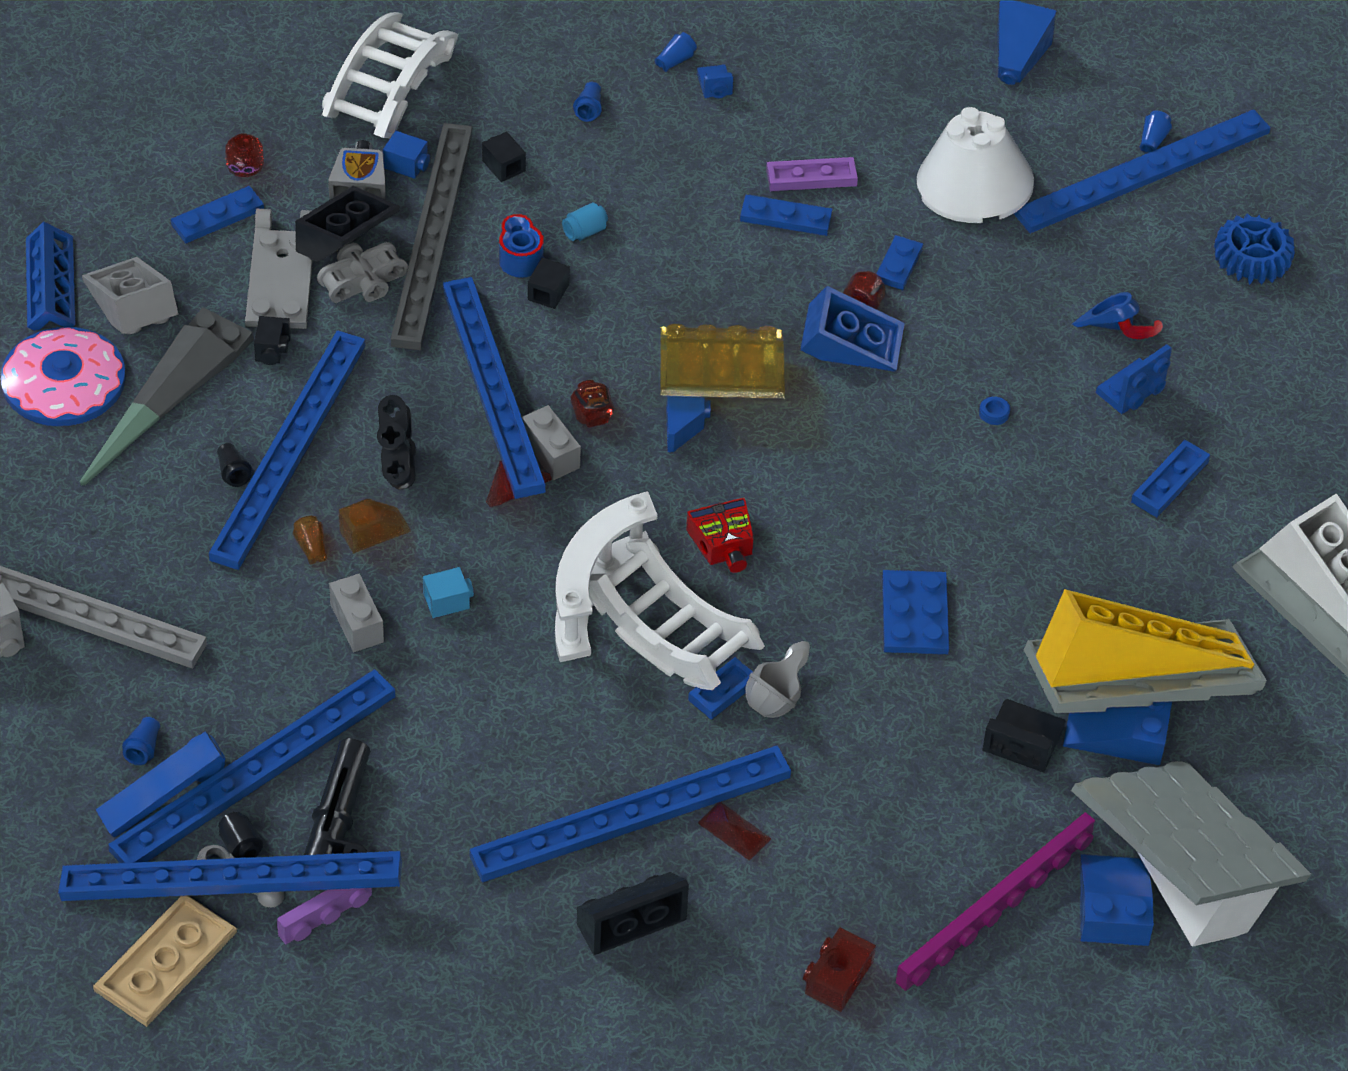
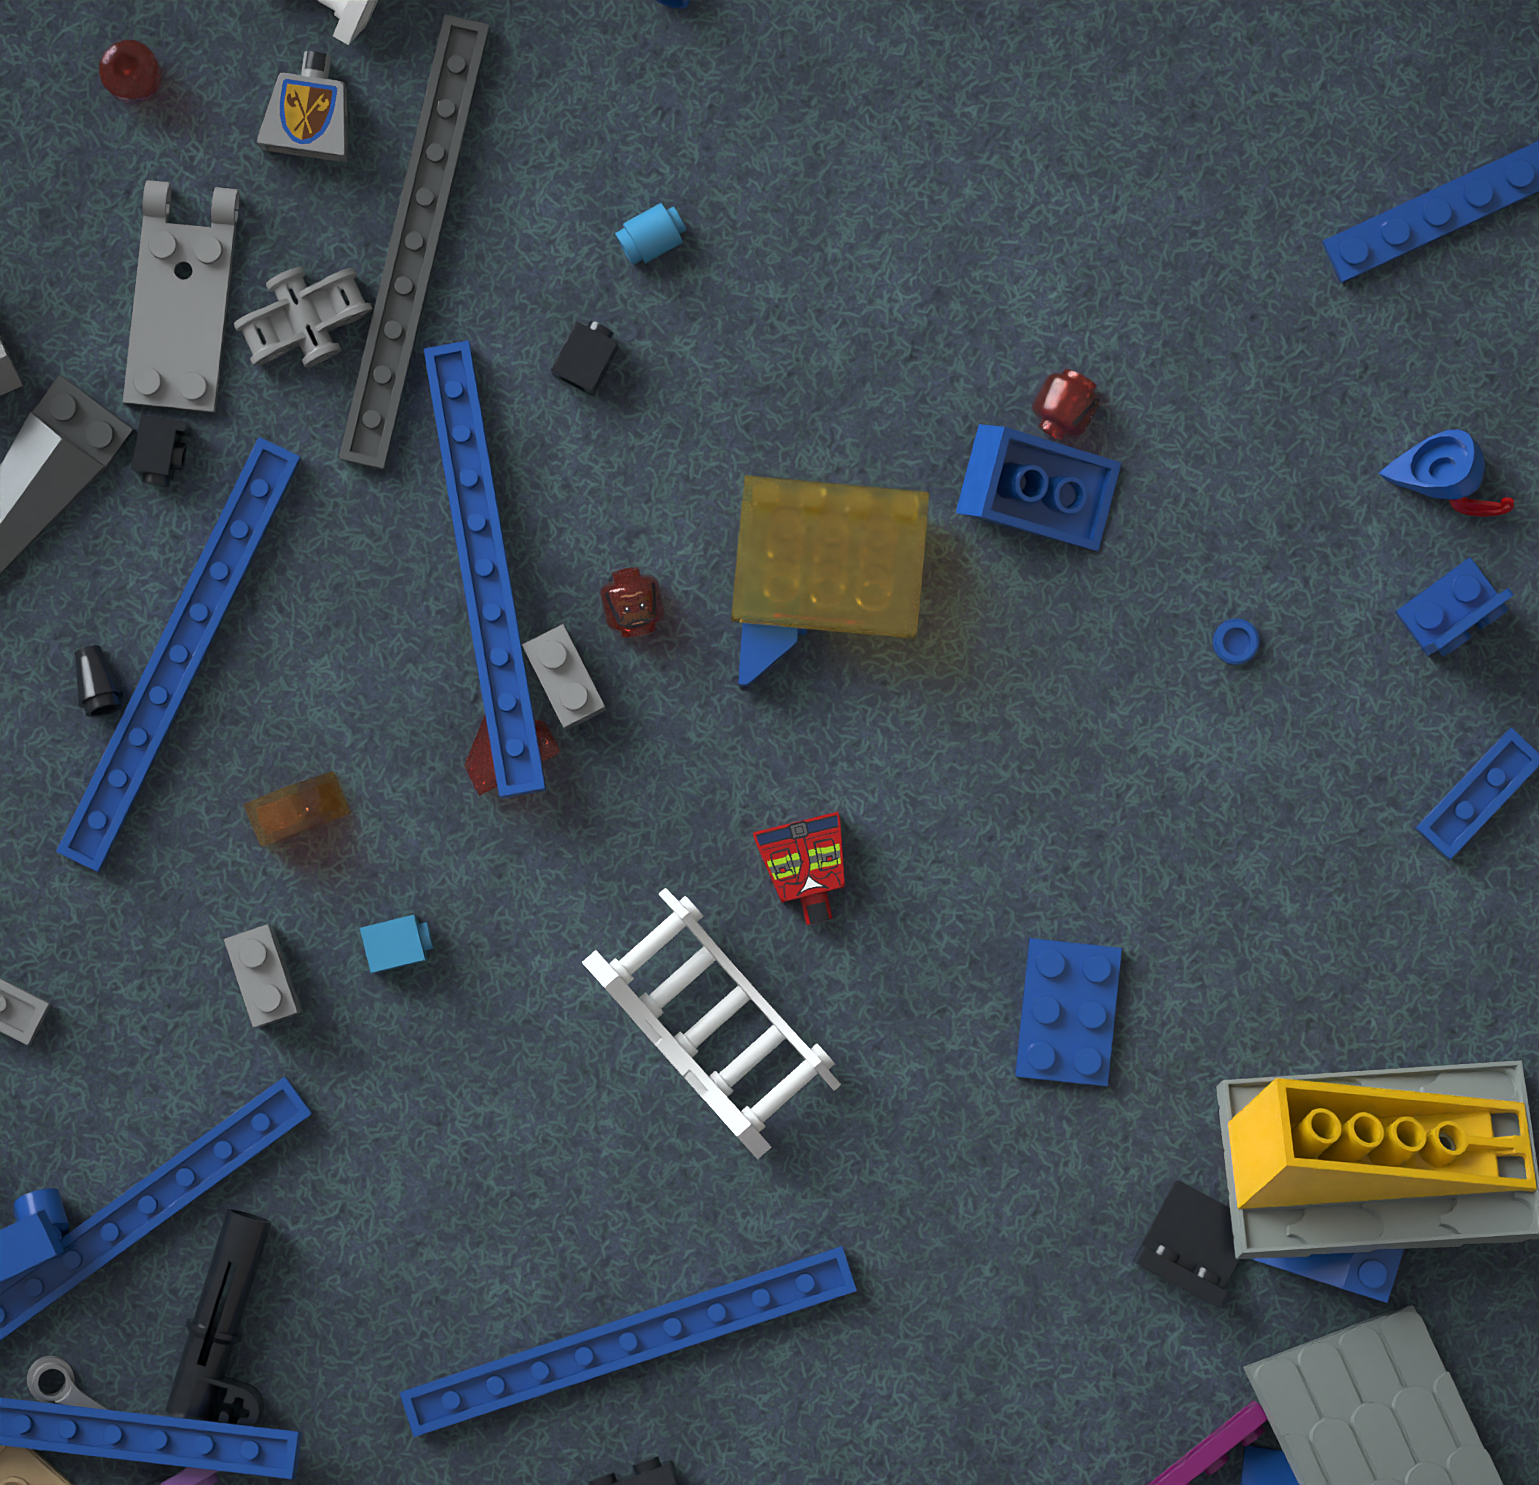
camera: 10 degrees right, 35 degrees up
(217, 214) = (87, 177): blue plate -> none
(240, 836) = (87, 1346): black brick -> none
(310, 537) = (205, 830): clear orange cone -> none
(340, 222) = (276, 243): black slope -> none
(396, 442) = (334, 687): black axle -> none
(406, 154) = (382, 78): blue brick -> none
(504, 156) = (533, 89): black brick -> none
(520, 246) = (529, 277): blue piece -> none
(594, 553) = (596, 935): white fence -> none
(732, 686) = (784, 1132): blue plate -> none
(734, 830) = (769, 1372): clear red slope -> none
(775, 685) = (853, 1143): light grey piece -> none
(786, 215) = (965, 228): blue plate -> none
(811, 174) = (1014, 149): medium lavender plate -> none
(899, 262) = (1128, 337): blue plate -> none
(975, 170) = (1269, 178): white cone -> none

